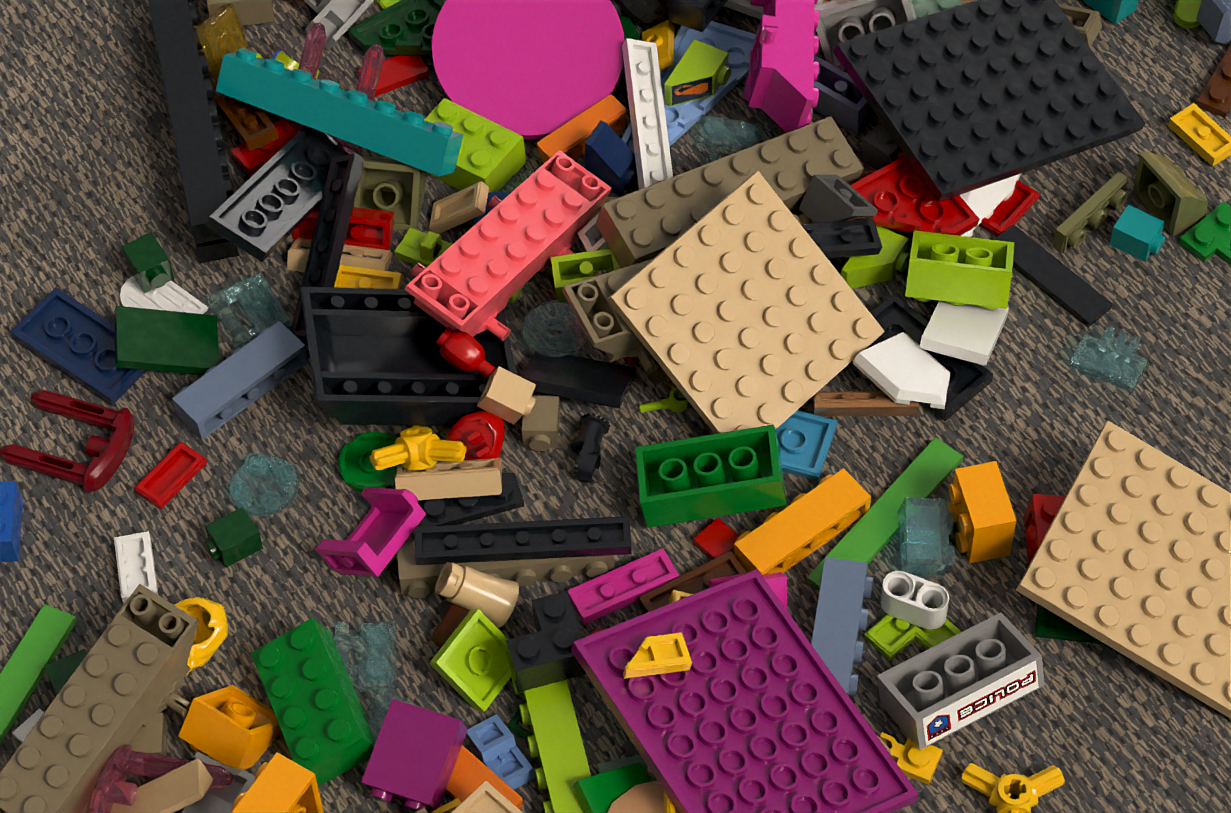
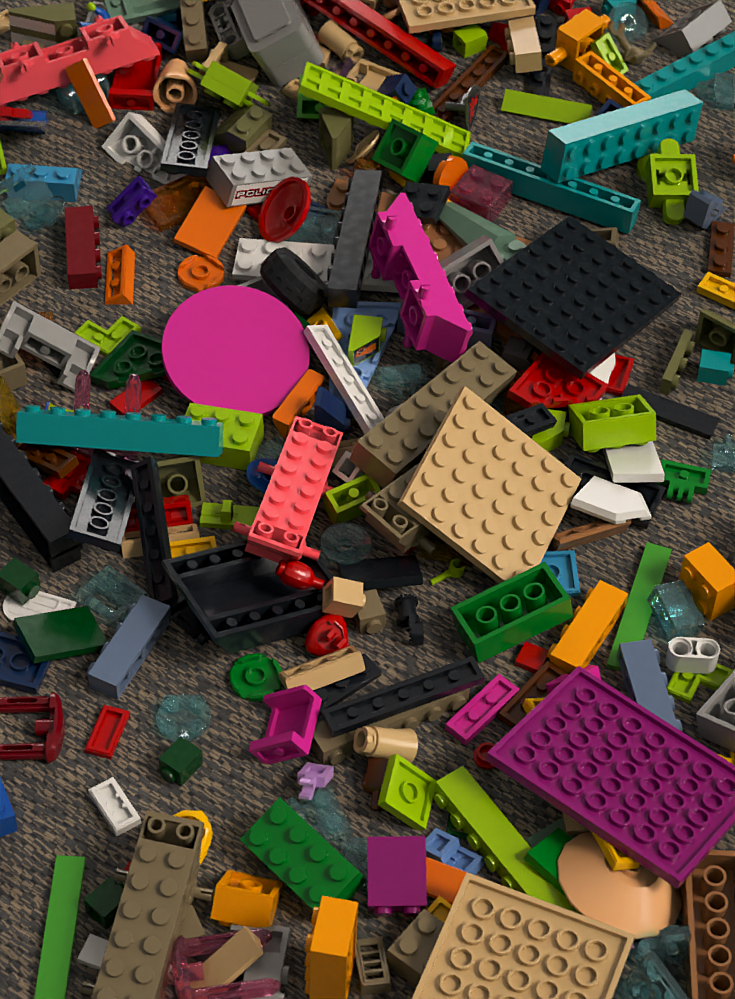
camera: 25 degrees left, 5 degrees down
(377, 604) = (313, 777): none -> lavender plate
(417, 450) = (294, 655): yellow bush -> none
(459, 207) = (235, 477): tan tile -> none
(546, 654) = (462, 763): black brick -> none
(659, 656) = (551, 743): yellow tile -> none
(834, 200) = (511, 398): dark grey slope -> none
(1023, 370) = (684, 479): none -> green hinge

